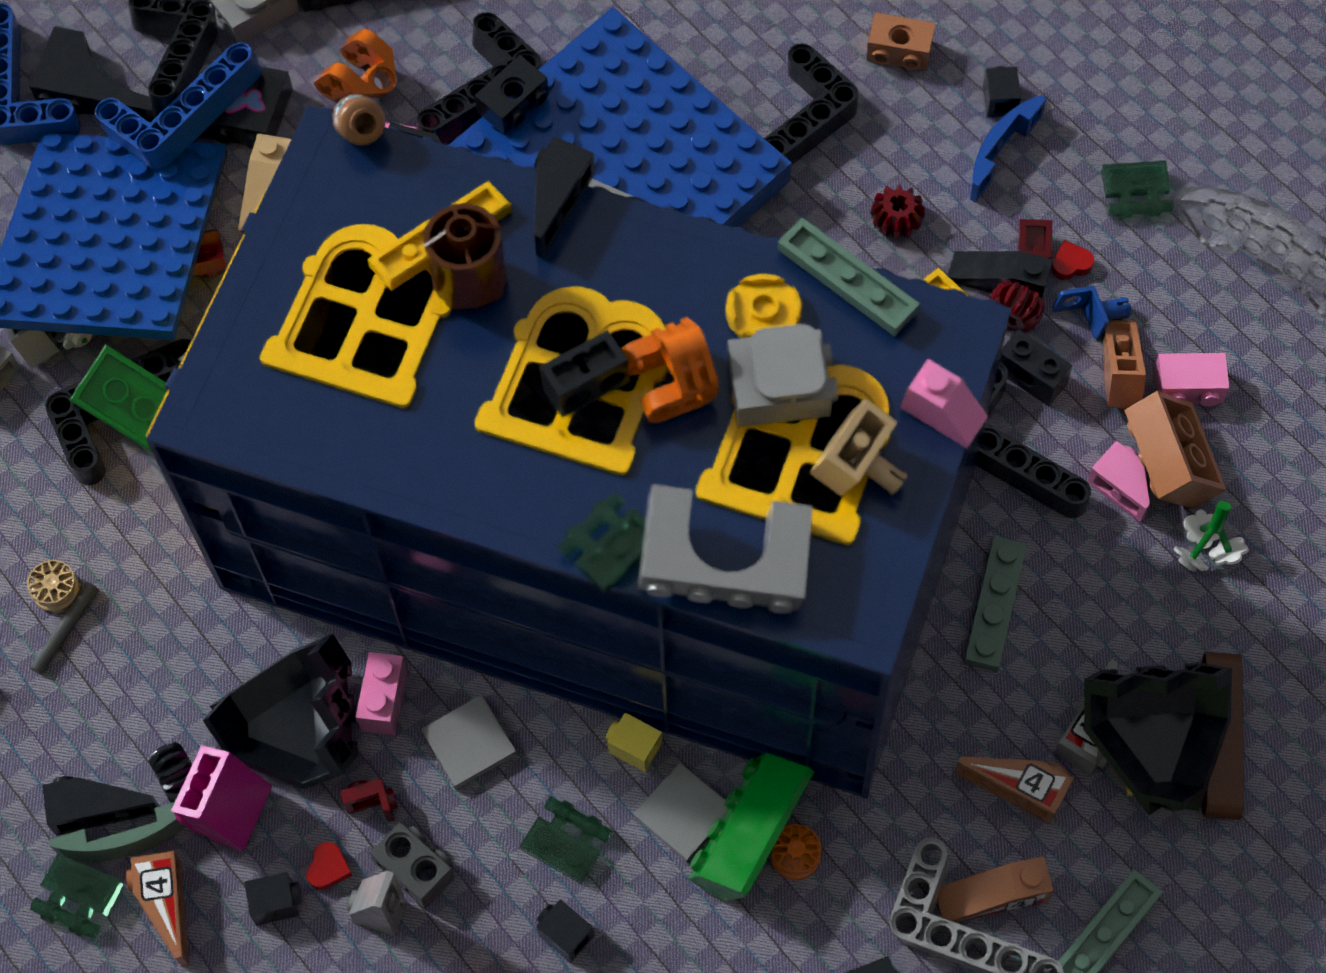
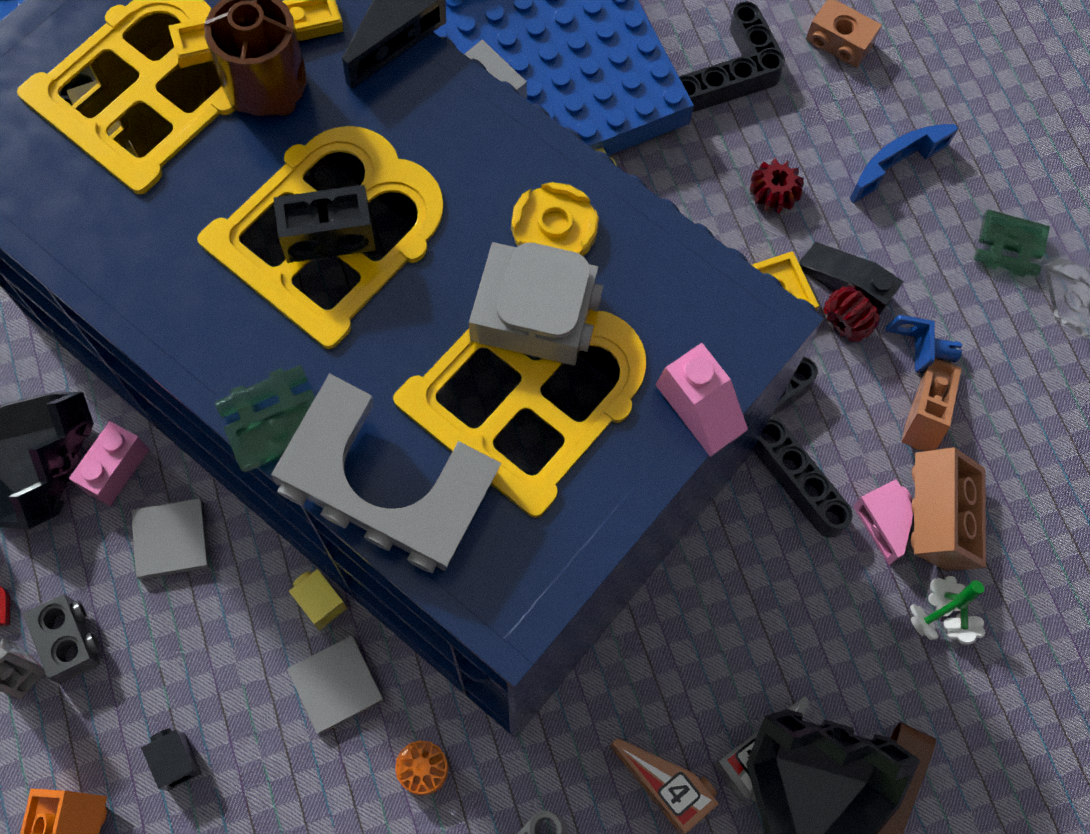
camera: 15 degrees right, 5 degrees up
(367, 794) = (51, 553): dark red bracket -> none
(560, 849) = (205, 674): clear green plate -> none
(689, 362) = (436, 255): orange piece -> none
(749, 826) = (383, 729): green slope -> none
(848, 276) = (659, 221): sand green plate -> none
(856, 452) = (580, 419): tan brick -> none
(995, 604) = (716, 593): sand green plate -> none
(1001, 90) = (919, 107): black brick -> none
(1035, 237) = (896, 255): dark red bracket -> none
(1035, 367) = (845, 378): black brick -> none
(1071, 261) = (922, 289): red tile -> none
(1193, 377) = (995, 443): bright pink brick -> none

